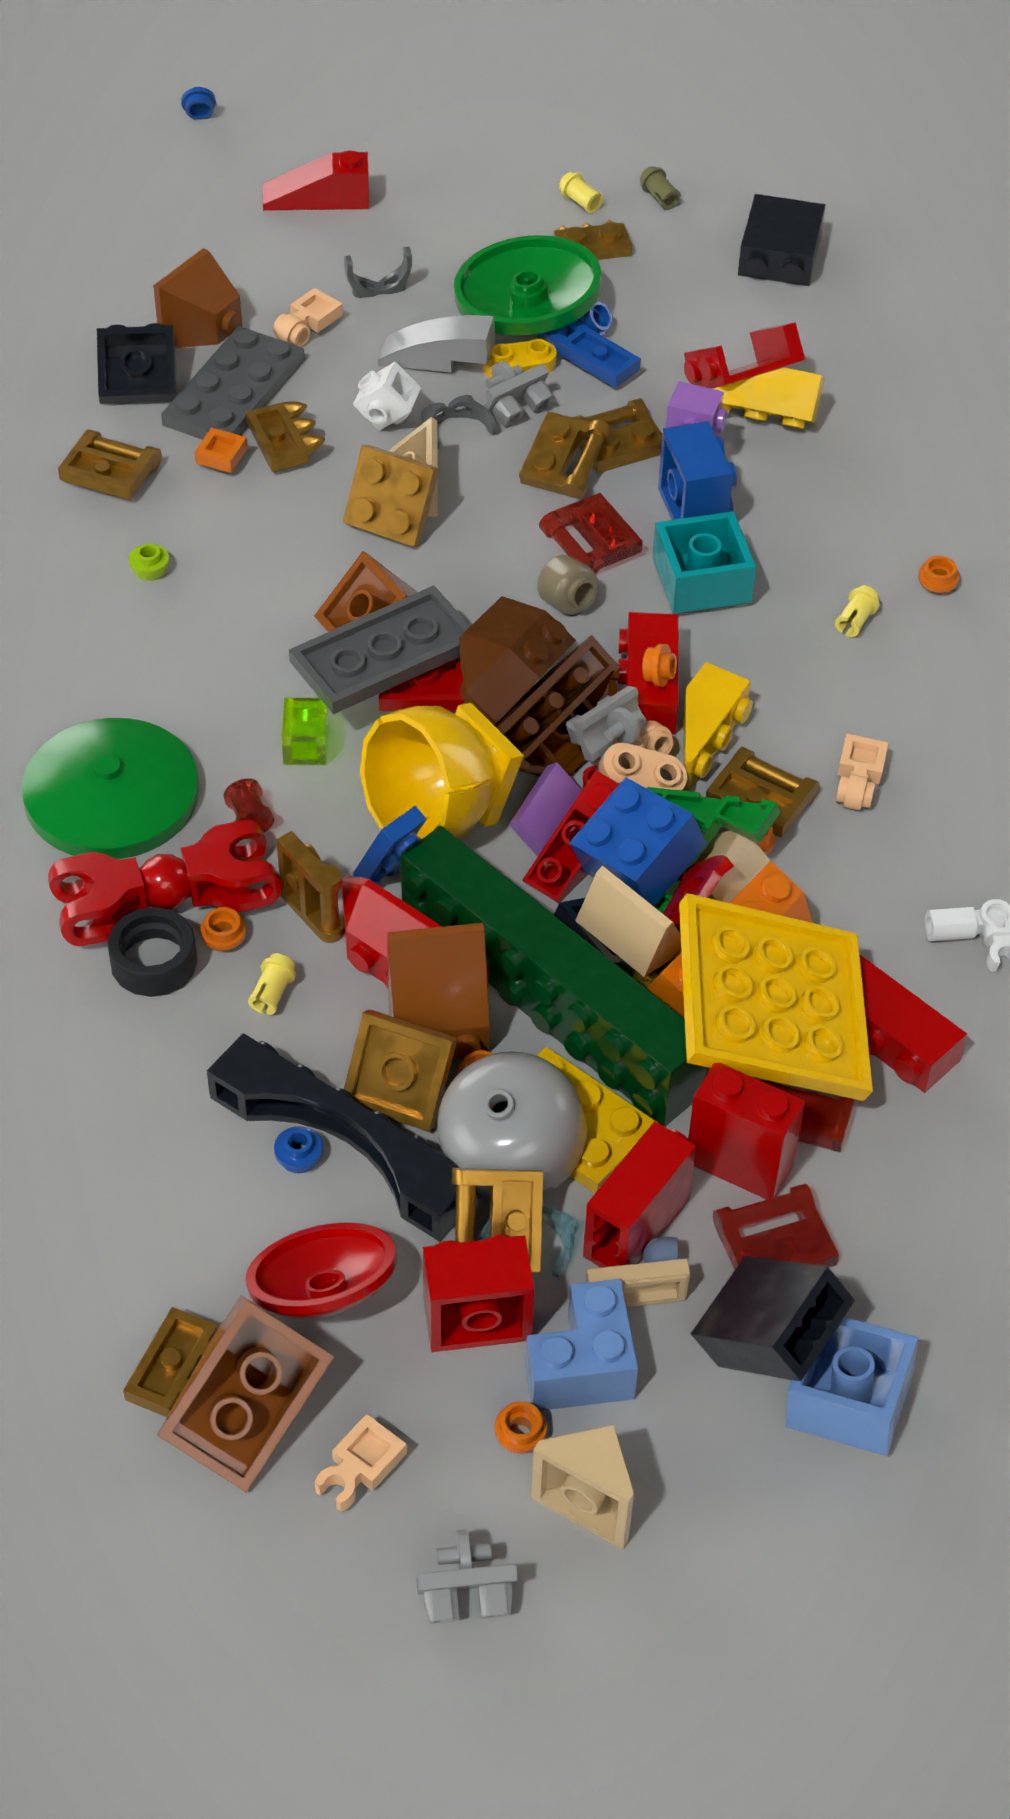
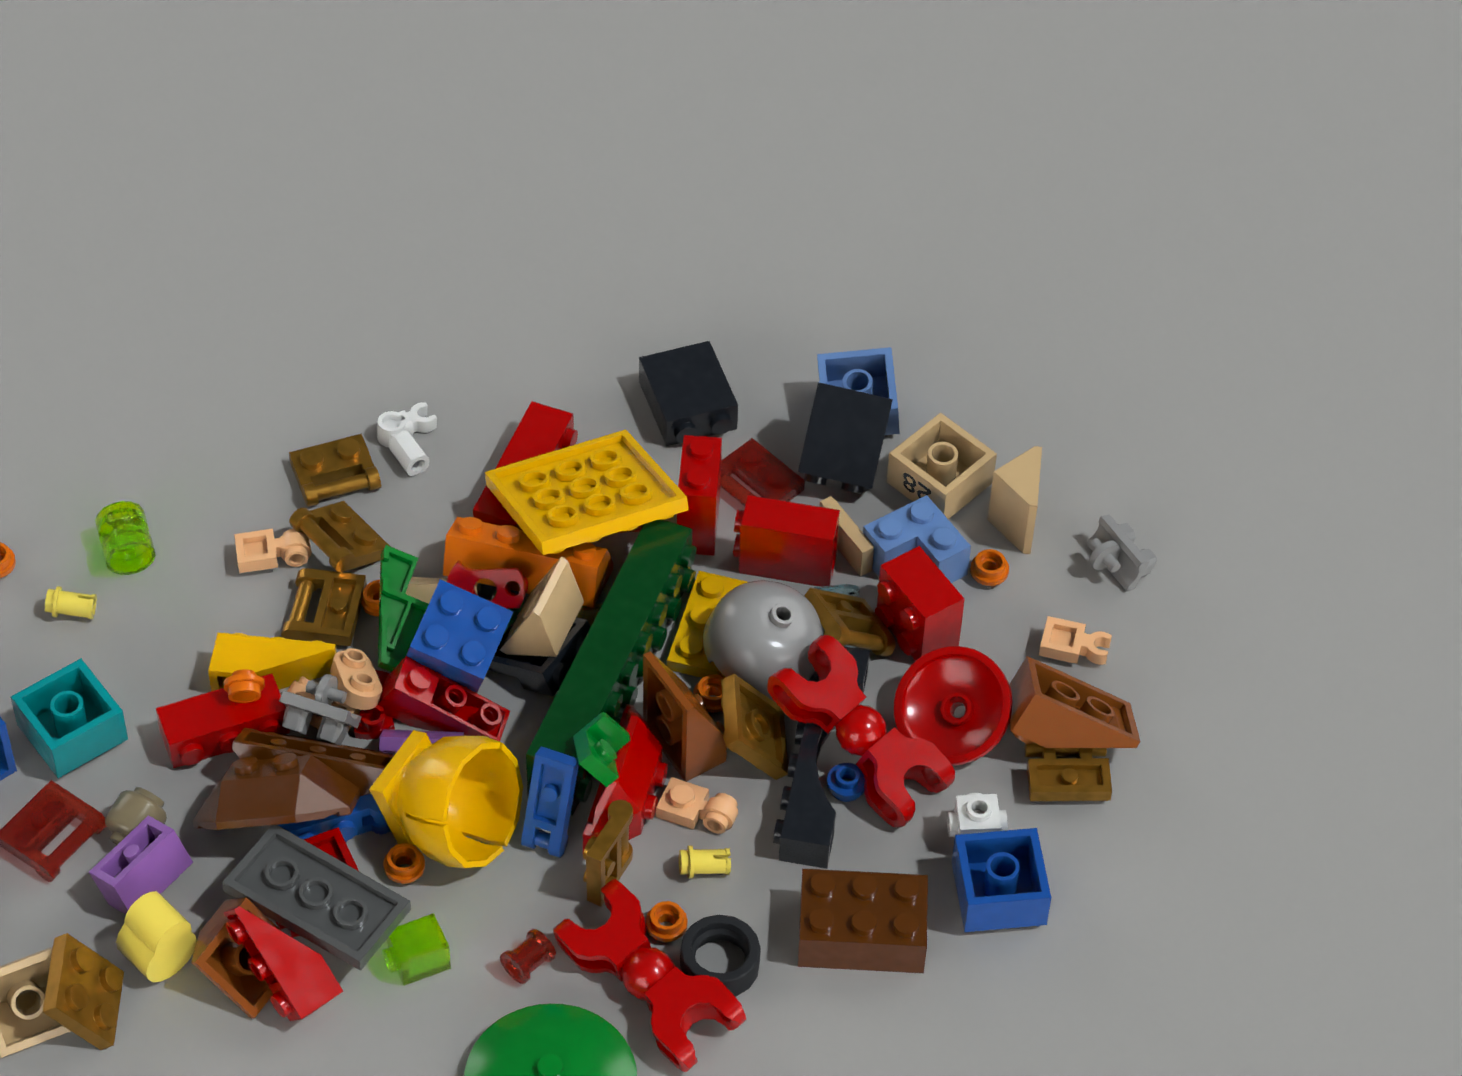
camera: 115 degrees left, 0 degrees up
(73, 1215) = (1001, 880): none -> blue brick
(110, 1079) = (863, 921): none -> reddish brown brick
(160, 1232) = (976, 815): none -> white brick
(330, 1153) = (861, 731): none -> red piece
(338, 603) = (291, 969): none -> red slope
(344, 1003) = (687, 803): none -> light nougat plate
(399, 870) = (597, 747): none -> green bracket
(420, 552) = (156, 937): none -> light yellow piece
(503, 563) = (140, 869): none -> medium lavender brick
(688, 1423) = (942, 464): none -> tan brick
(852, 837) = (340, 535): none -> pearl gold plate
(918, 659) = (125, 538): none -> clear neon green wheel
(934, 1212) = (688, 392): none -> black brick
(968, 859) = (334, 469): none -> pearl gold plate

